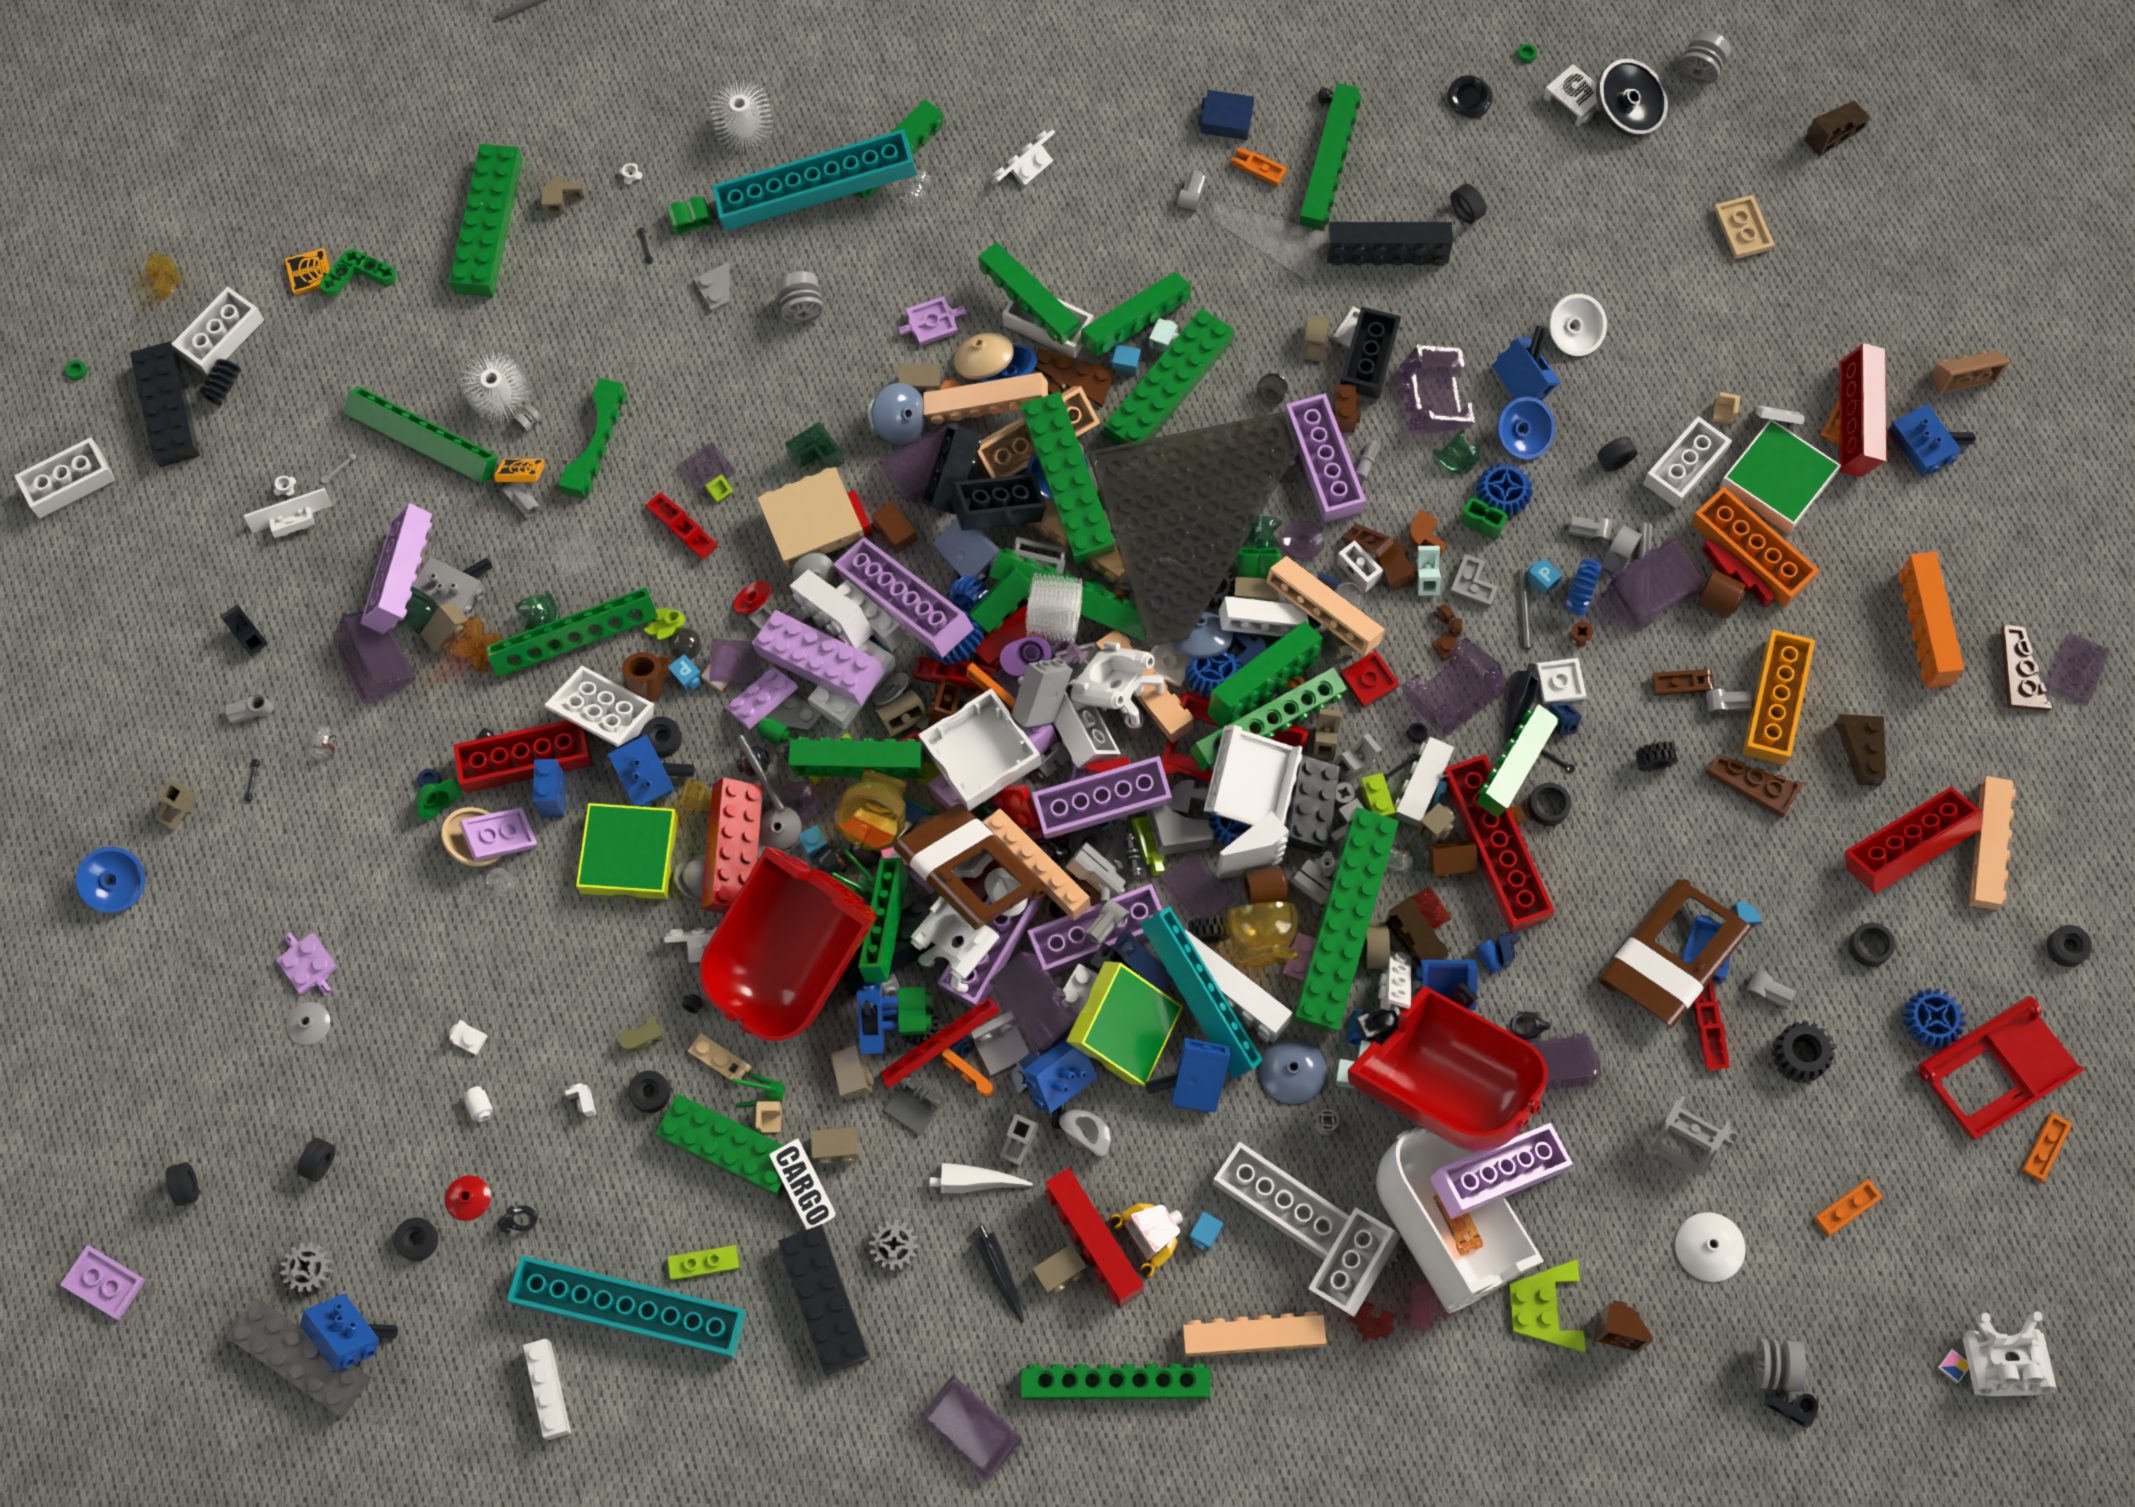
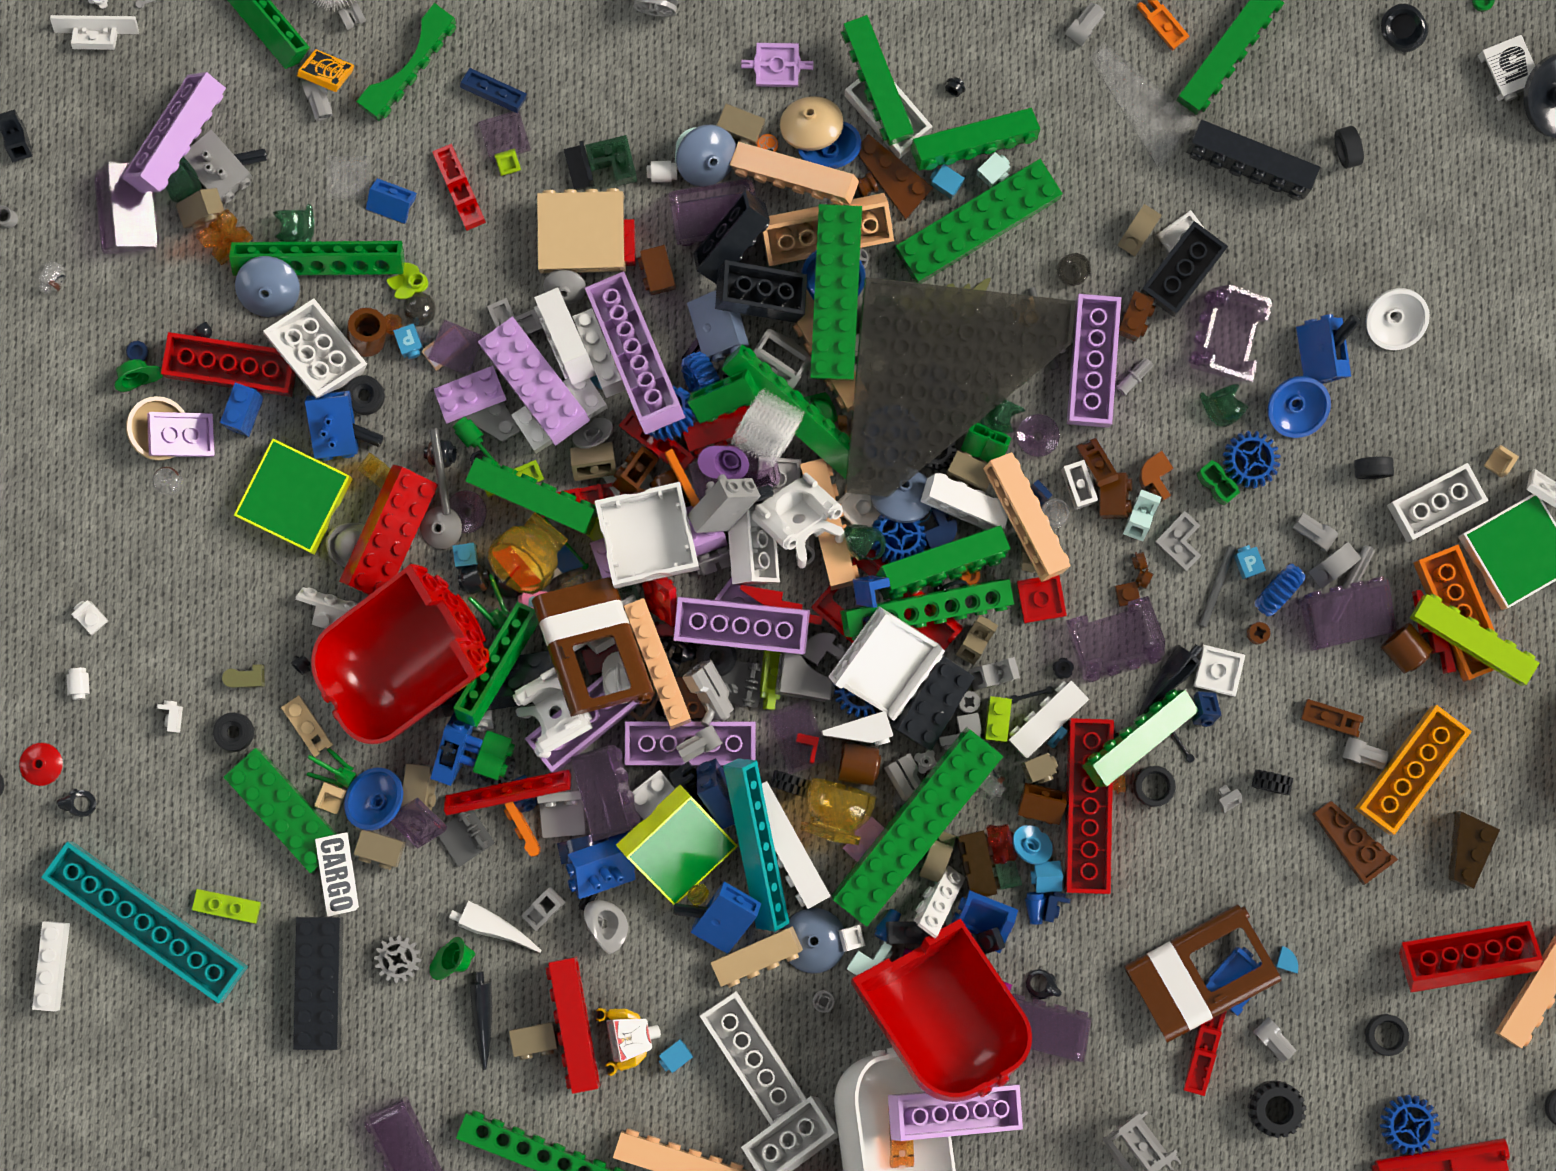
camera: 15 degrees right, 15 degrees up
(530, 658) = (270, 275): none -> sand blue dish
(621, 561) = (390, 200): none -> blue panel
(681, 433) = (493, 90): none -> dark blue plate
(752, 597) = (498, 288): red dish -> none
(785, 466) = (579, 167): none -> black panel
(811, 1099) = (366, 794): none -> blue dish
(863, 1104) = (418, 823): none -> clear purple tile
(864, 444) = (662, 171): none -> white brick
(949, 1222) = (451, 958): none -> green piece
(1099, 280) = (957, 84): none -> black plate
(1164, 1064) = (698, 894): none -> clear yellow tile
(1181, 683) = (860, 540): none -> clear green piece
(1206, 721) = (865, 587): none -> blue panel
(1210, 882) = (808, 741): none -> red panel
(1245, 1103) = (757, 956): none -> tan brick
(1328, 1053) = (851, 938): none -> white tile
(1451, 937) = (1008, 875): none -> clear green panel
(1460, 899) = (1039, 844): none -> dark azure dish
(1488, 922) = (1047, 877): none -> dark azure brick
(1624, 788) = (1229, 799): none -> light grey tile
(1779, 558) = (1474, 639): none -> lime brick

